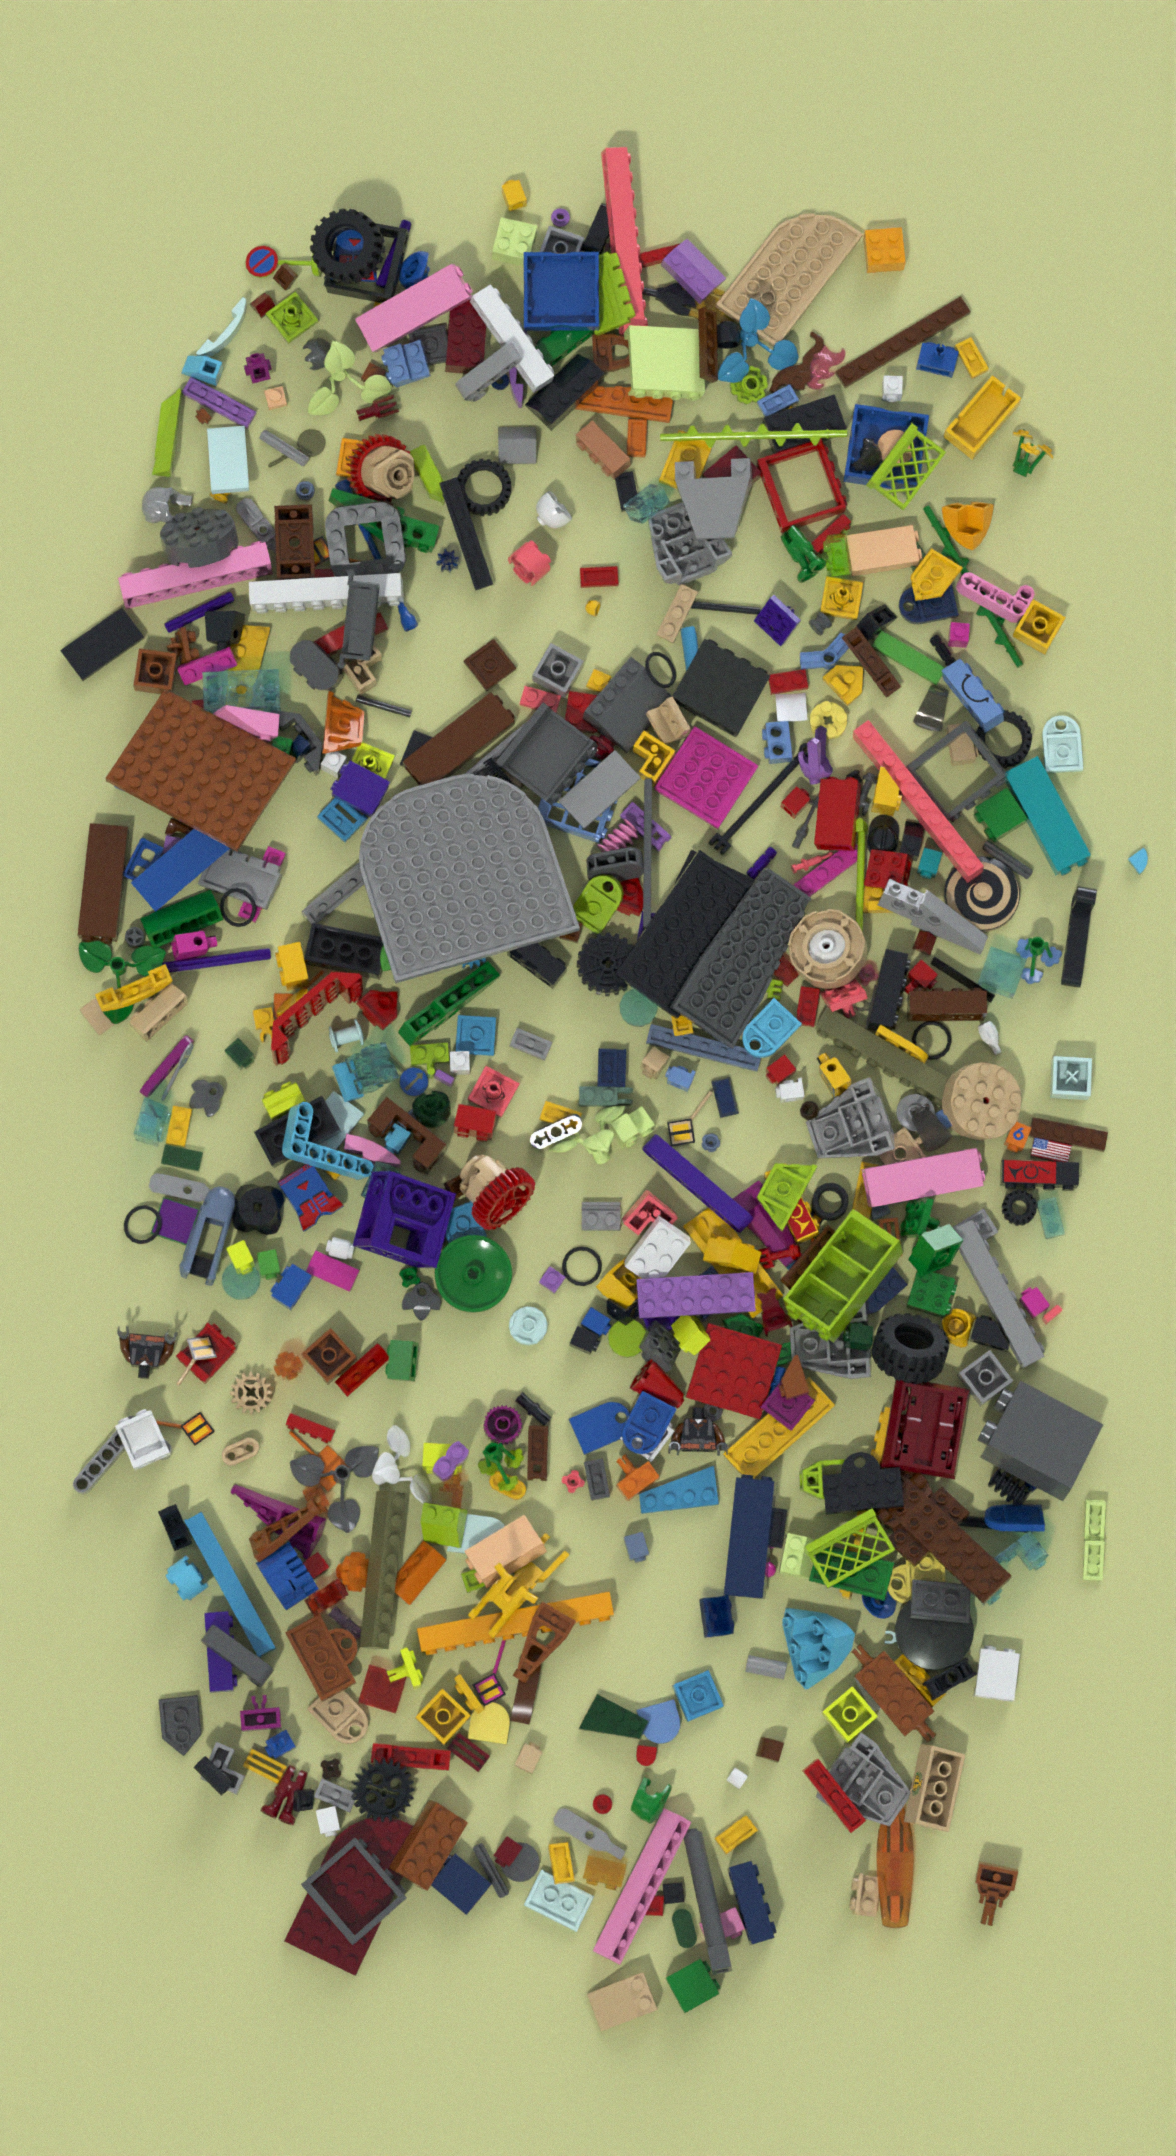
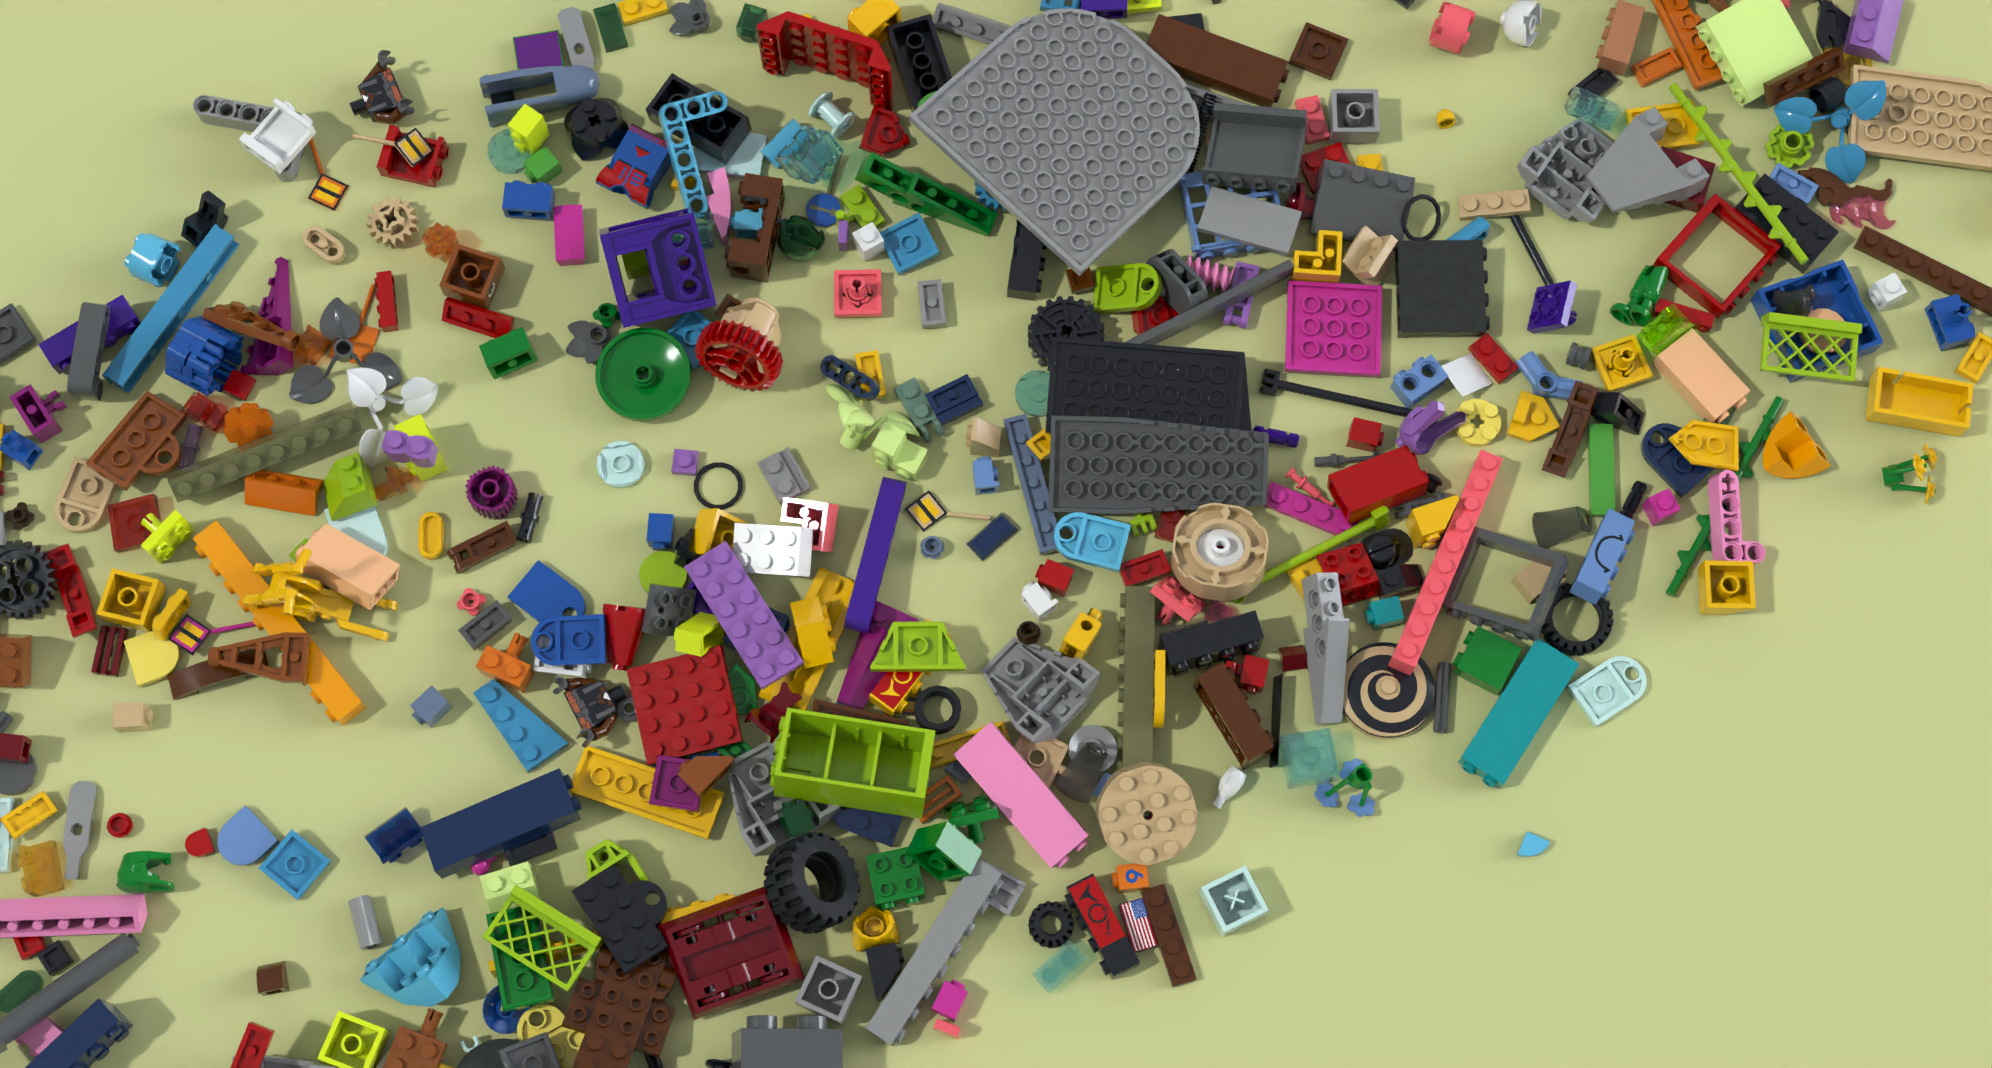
camera: 65 degrees right, 5 degrees down
(131, 1213) = (514, 10): black piece -> none
(279, 1103) = (737, 92): neon yellow brick -> none
(340, 1248) = (595, 221): white brick -> none
(474, 1122) = (809, 288): red brick -> none
(493, 1455) = (445, 503): plant -> none
(584, 1340) = (634, 529): black brick -> none
(599, 577) = (1482, 108): red tile -> none
(613, 1719) = (221, 786): dark green wing -> none
(736, 1834) = (156, 992): yellow tile -> none
(737, 1778) = (220, 958): white hose -> none
(793, 1252) = (855, 697): red hinge -> none
(942, 1027) = (1208, 718): black piece -> none
(1081, 907) = (1439, 806): black beam -> none

